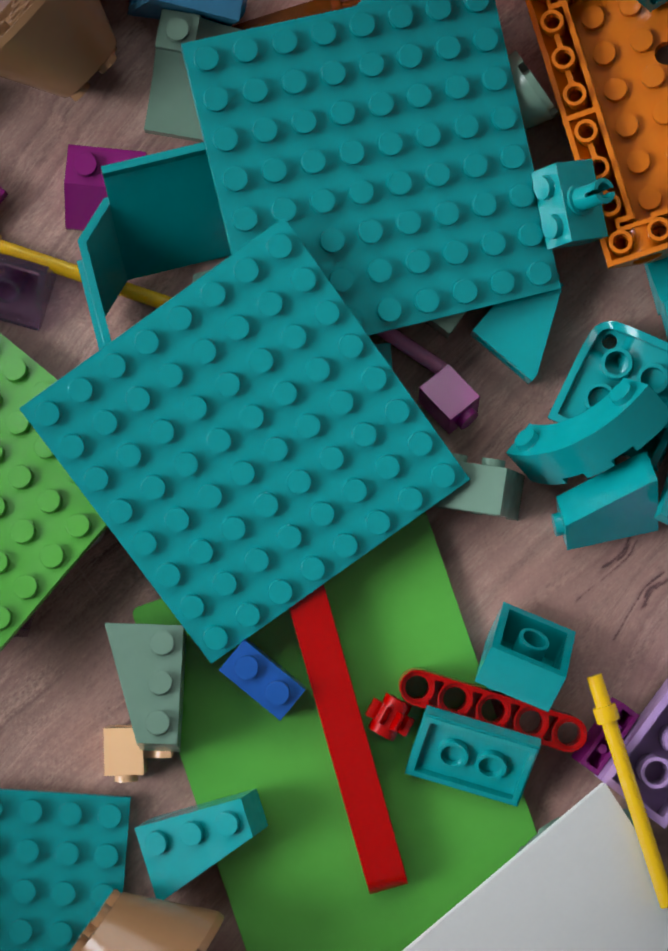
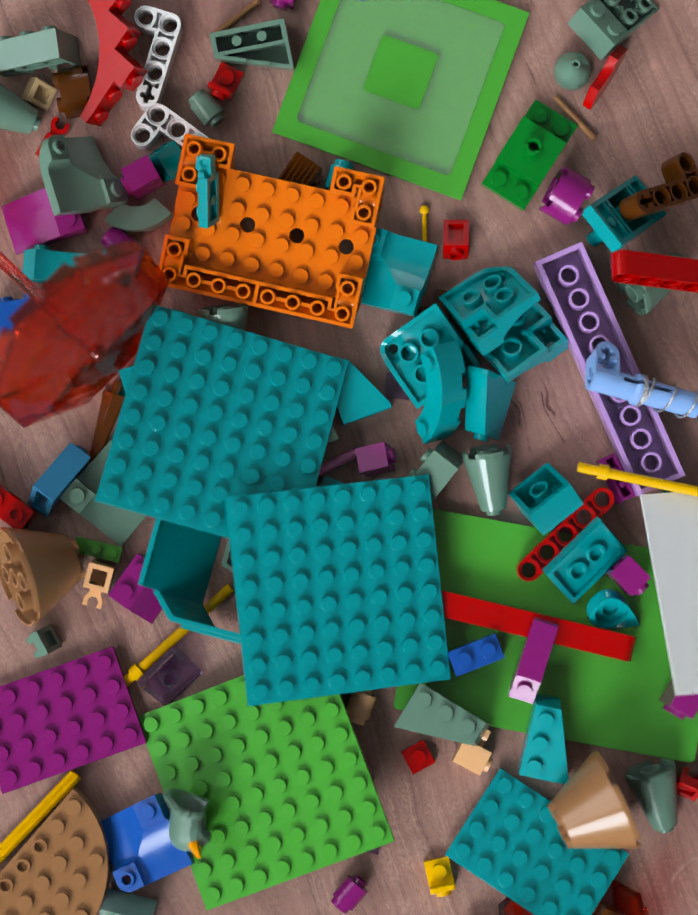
camera: 60 degrees left, 0 degrees up
(84, 123) = (98, 580): none -> light nougat brick
(85, 678) = (418, 756): none -> red plate
(107, 564) = (360, 706): none -> light nougat brick
(124, 102) = (99, 549): none -> bright green piece
(297, 761) = (533, 660): none -> magenta slope
(389, 717) = (536, 594): red gear -> none
(424, 828) = (610, 610): none -> teal piece
(485, 828) = (629, 576): none -> magenta brick
(512, 564) = (489, 475): none -> sand green cone
(555, 373) = (393, 389): none -> clear purple tile
(571, 203) = (304, 329): teal brick -> none

